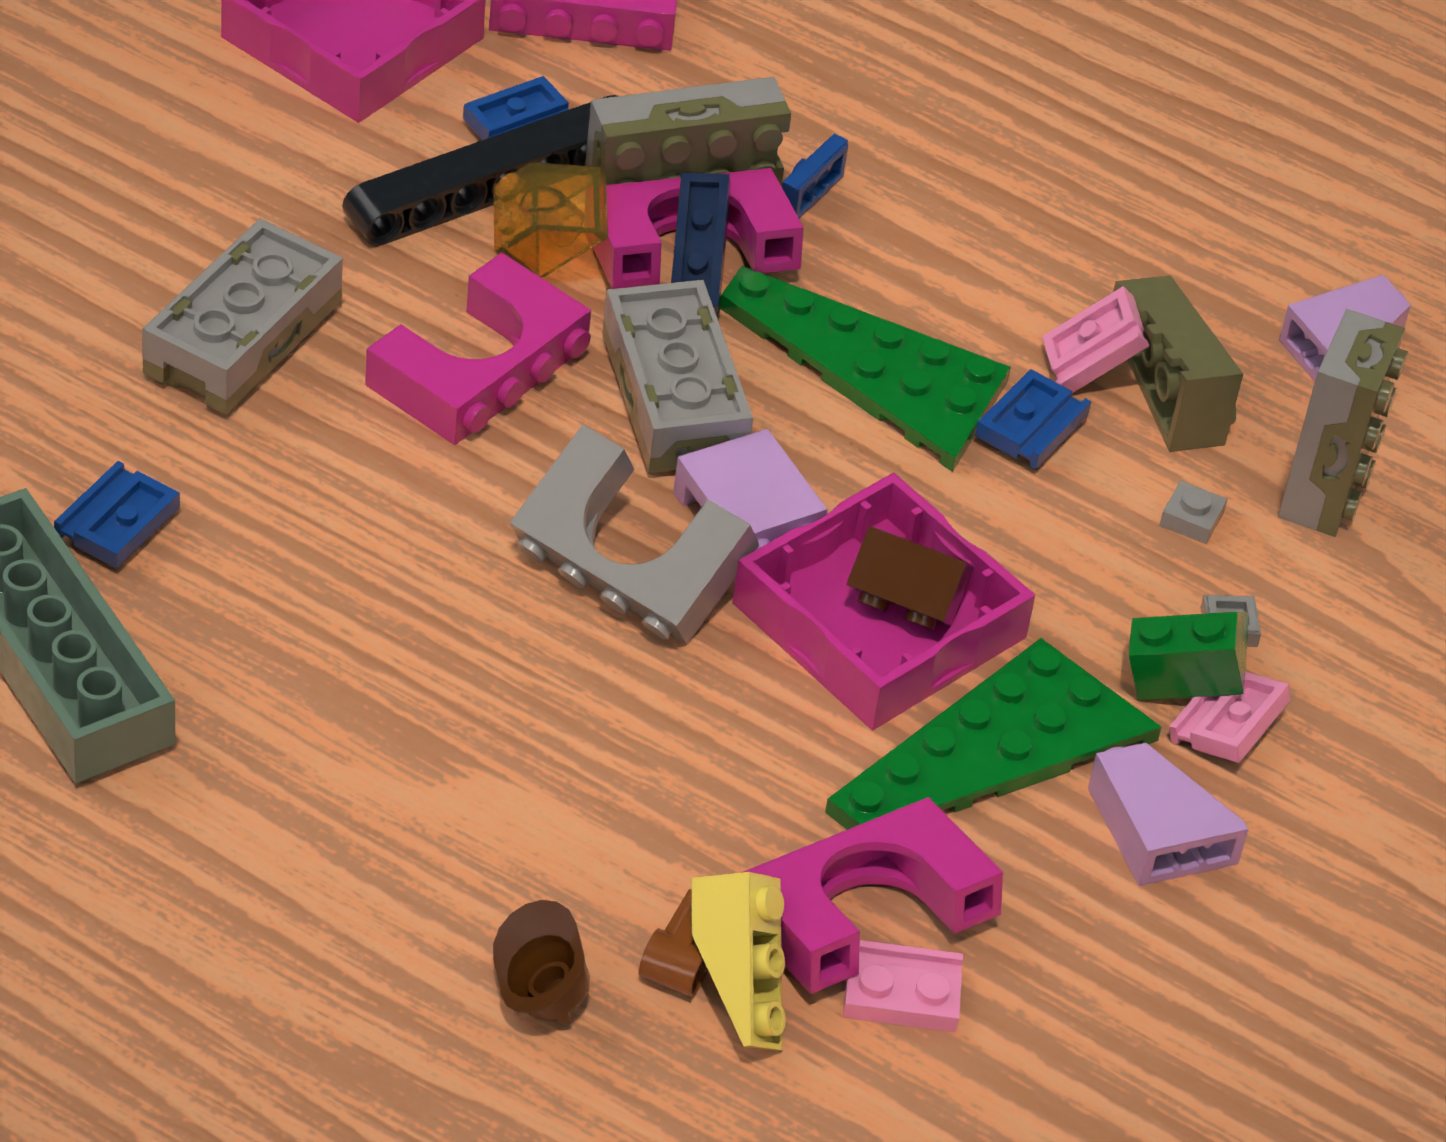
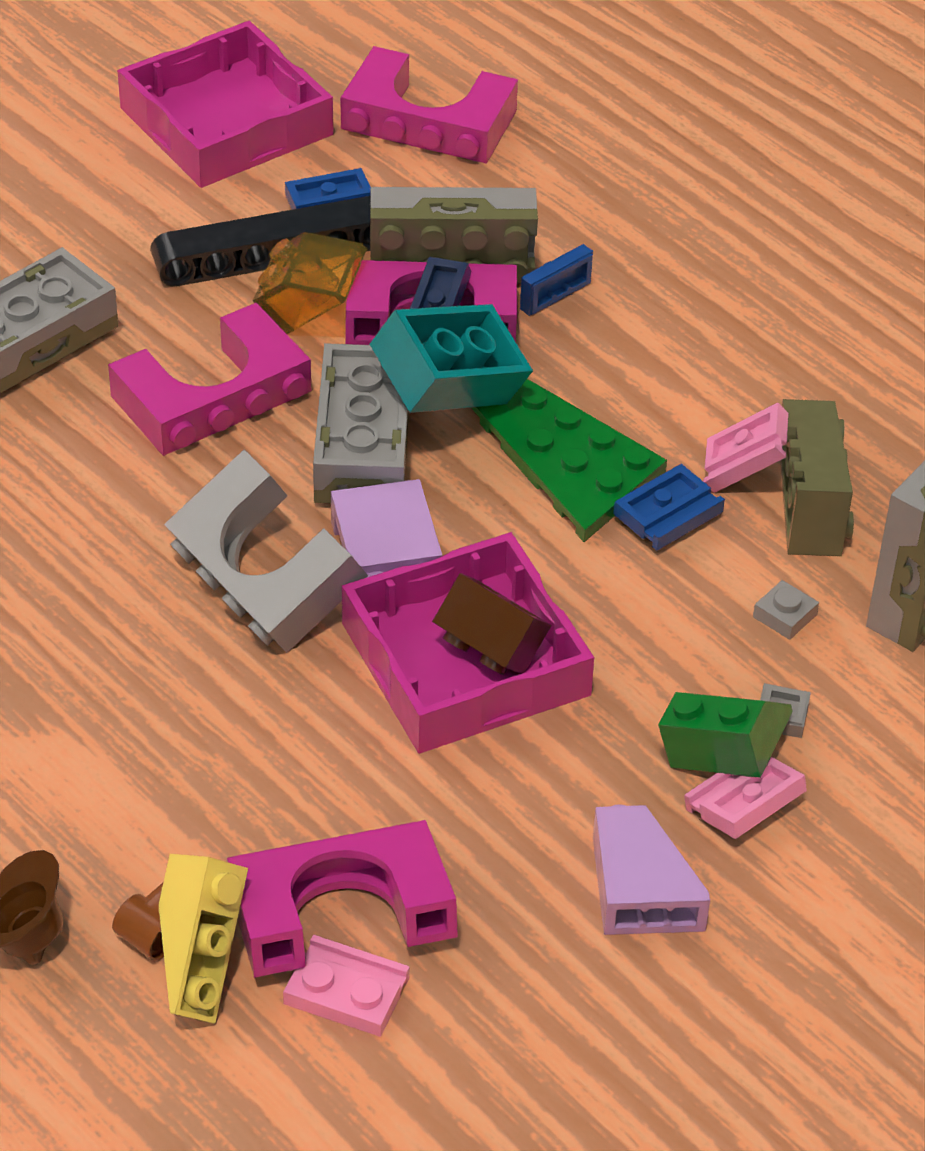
camera: 20 degrees right, 0 degrees up
(759, 286) = (450, 357): none -> teal brick
(998, 738) = (524, 780): green wing -> none

